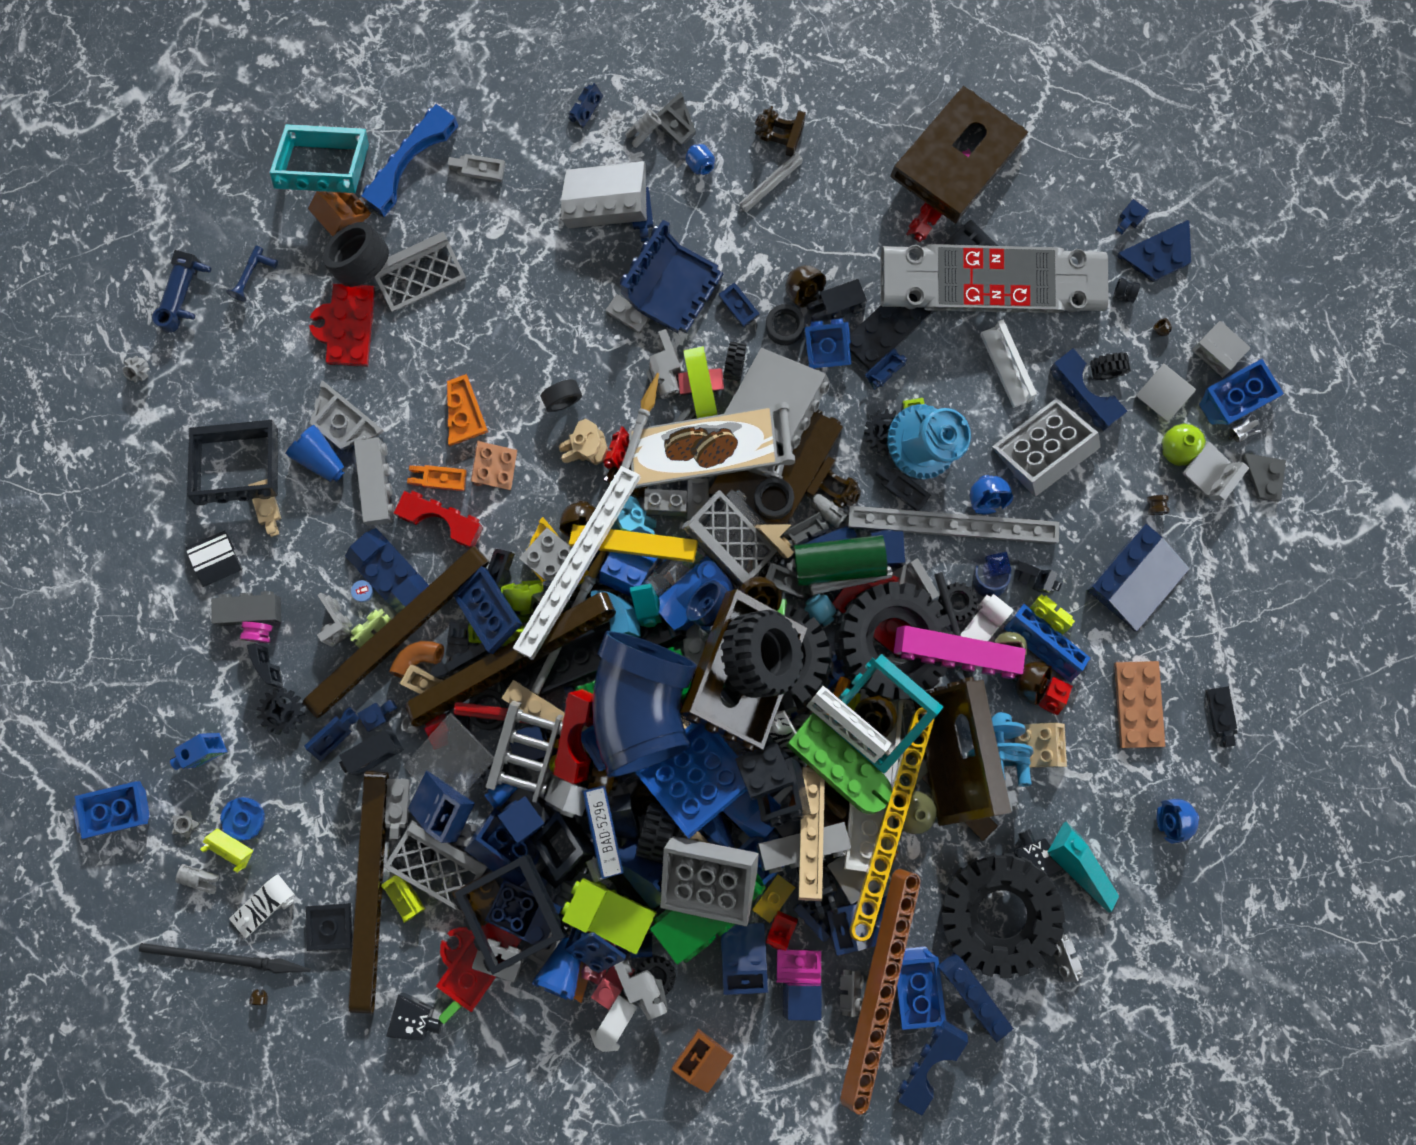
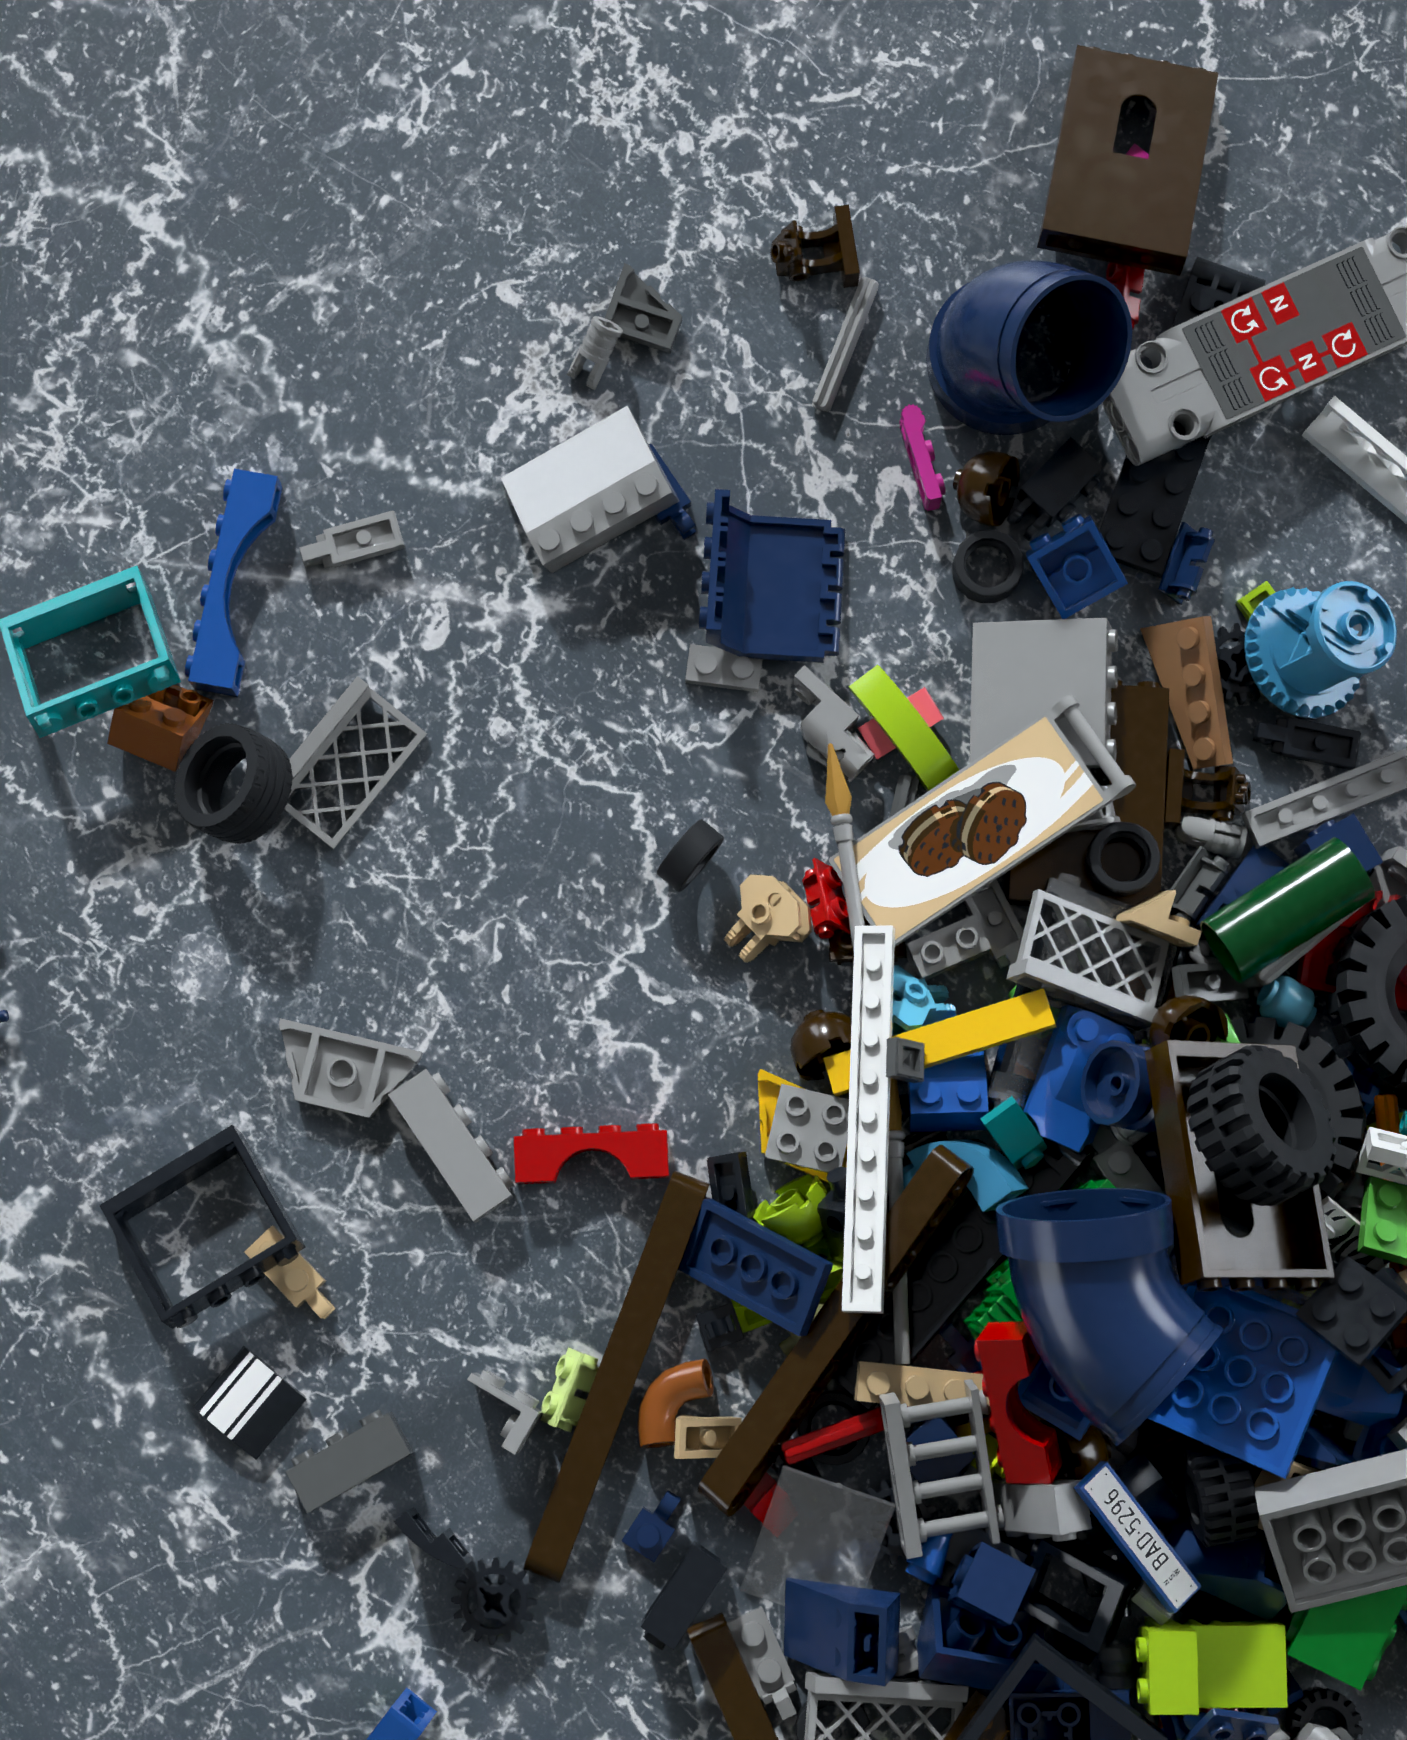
camera: 30 degrees left, 0 degrees up
(255, 257) = (57, 865): dark blue piece -> none
(256, 632) = (387, 1491): dark pink wheel -> none
(316, 455) = (336, 1147): blue cone -> none
(331, 735) = (599, 1596): dark blue plate -> none
(346, 325) = (269, 907): red plate -> none
(362, 591) = (524, 1335): medium blue tile -> none
(386, 569) = (549, 1282): dark blue piece -> none
(407, 727) = (714, 1519): light grey hinge -> none
(439, 477) = (555, 1086): orange hinge -> none
(459, 661) = (744, 1372): black hinge -> none
(464, 414) = (540, 957): orange wing -> none
(493, 465) = (635, 1023): nougat hinge -> none
(589, 100) = (480, 340): dark blue hinge -> none
(609, 542) = (905, 1060): none -> dark grey tile
(700, 159) = (713, 359): blue head -> none
(734, 361) = (942, 665): black tyre -> none
(738, 305) = (897, 569): dark blue plate -> none
(779, 254) = (920, 455): none -> dark pink hinge
(825, 204) = (978, 336): none -> dark blue cylinder
(858, 424) = (1189, 666): none -> medium nougat wing

